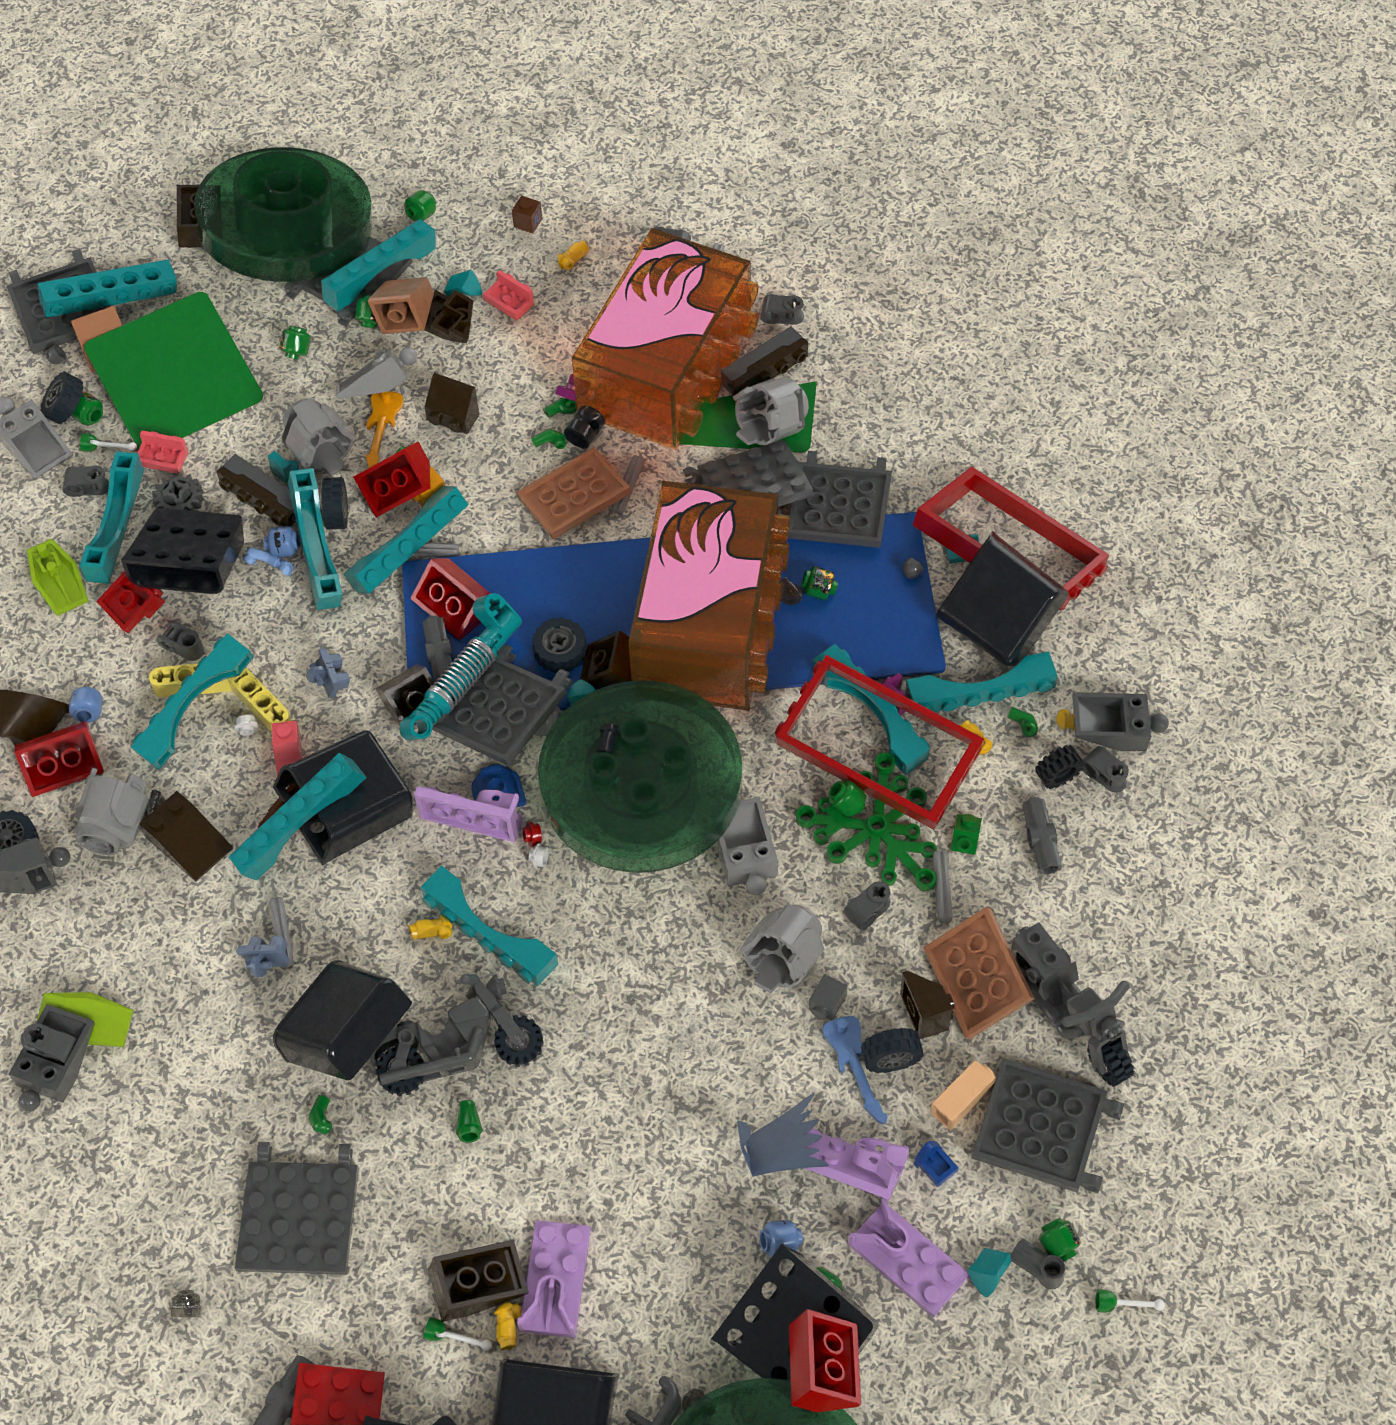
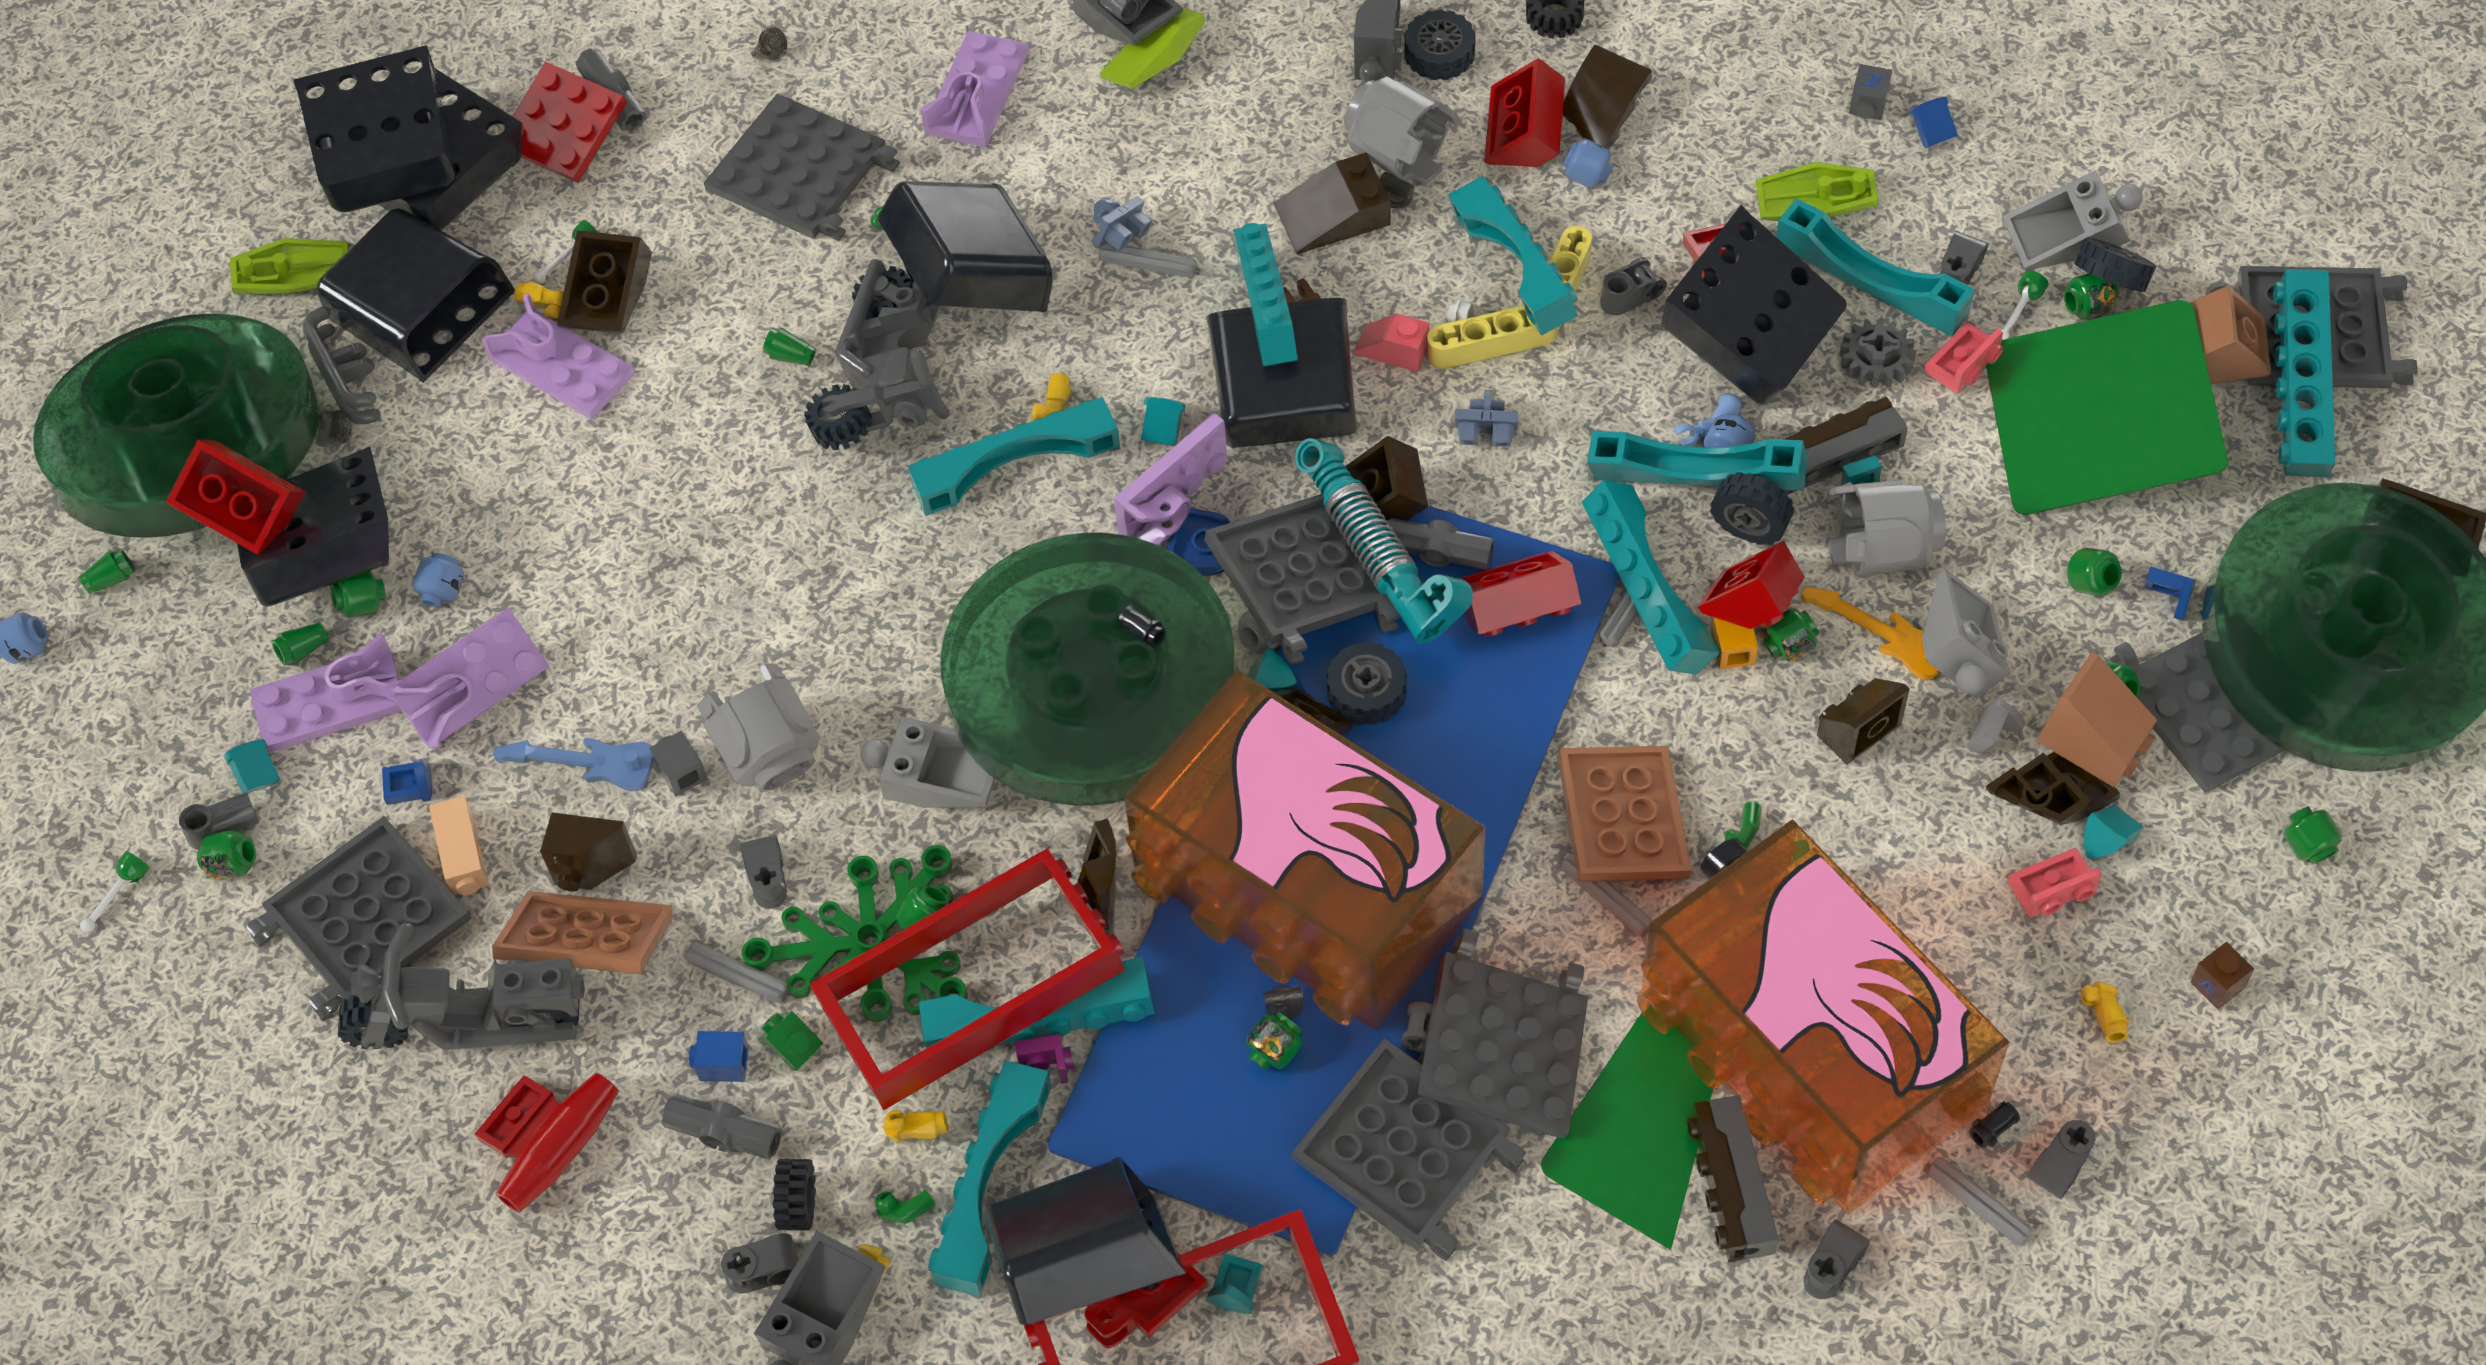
camera: 120 degrees right, 0 degrees up
(169, 1128) = (975, 89): none -> lavender plate
(286, 304) = (2173, 585): none -> blue tile
(346, 283) = (2221, 770): teal arch -> none
(414, 852) = (1162, 420): none -> teal tile
(426, 354) = (1990, 722): none -> light grey tile
(770, 411) = (1611, 1121): light grey piece -> none
(771, 708) = (1099, 872): none -> dark brown slope
(781, 1142) = (531, 608): sand blue piece -> none
(880, 1305) = (299, 642): none -> green cone
(892, 1050) = (554, 781): black wheel -> none
(912, 568) = (1230, 1183): dark grey hinge -> none
(1002, 859) = (720, 1056): none -> blue brick
(1110, 926) = (543, 1133): none -> red plate

